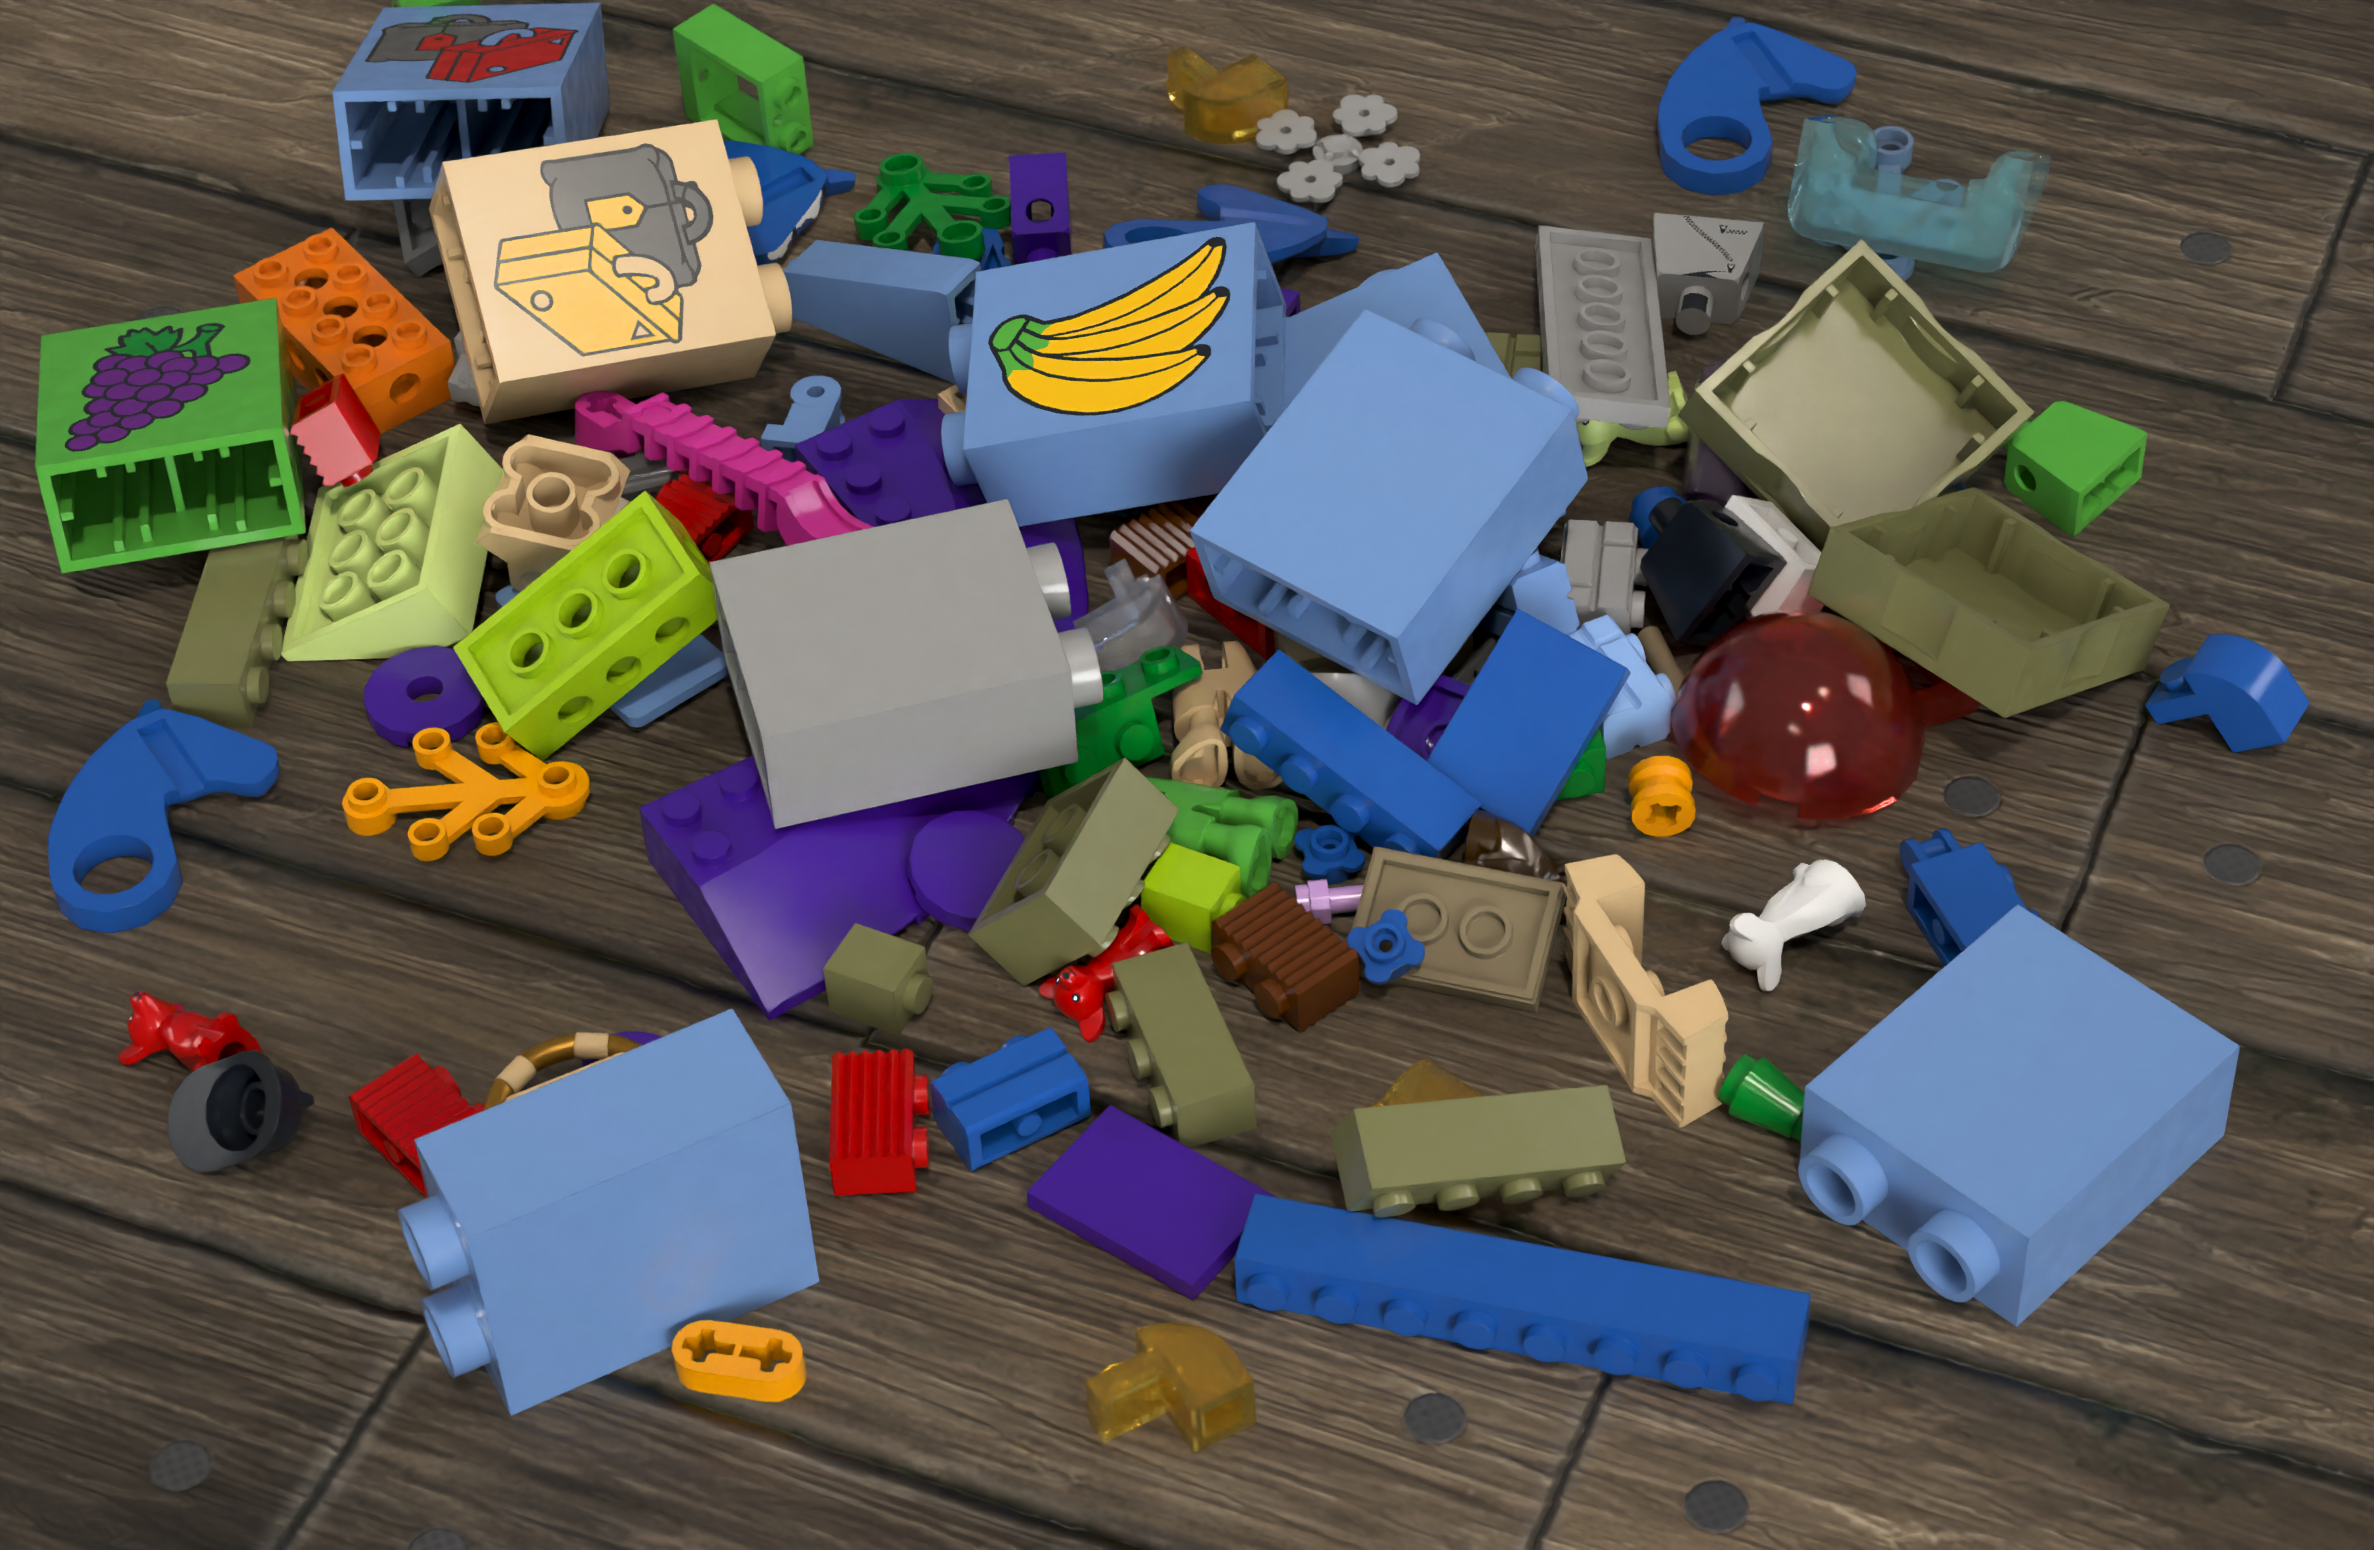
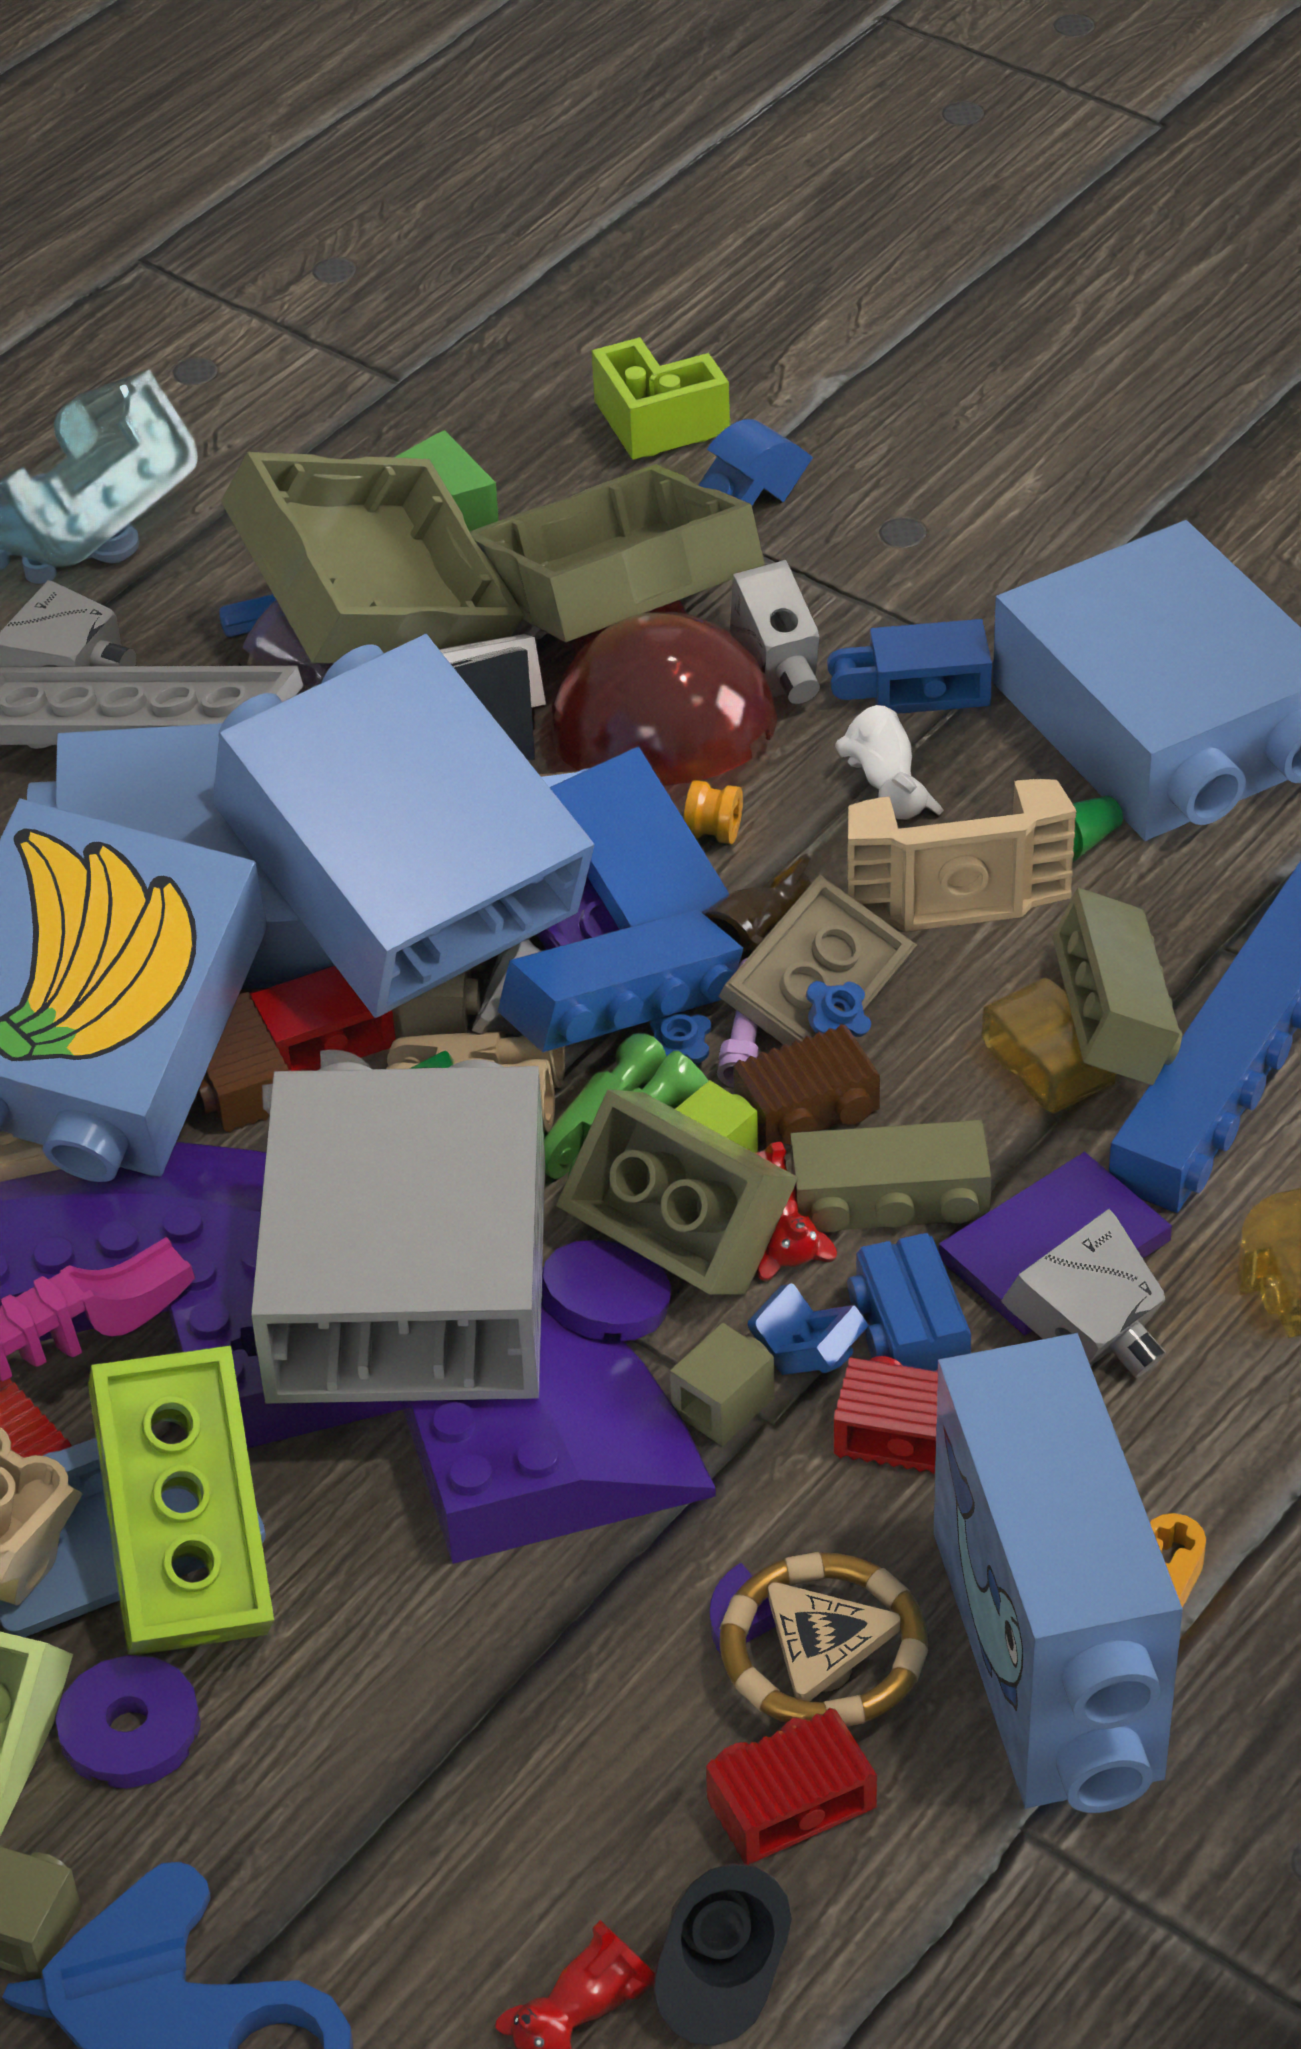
camera: 75 degrees left, 0 degrees up
(543, 789) = (304, 1689): light orange plant -> none
(958, 1022) = (803, 1337): none -> blue bracket
(1051, 1226) = (1094, 1289): none -> light grey torso
(1943, 770) = (789, 643): none -> light grey torso
(2307, 587) = (659, 405): none -> lime brick

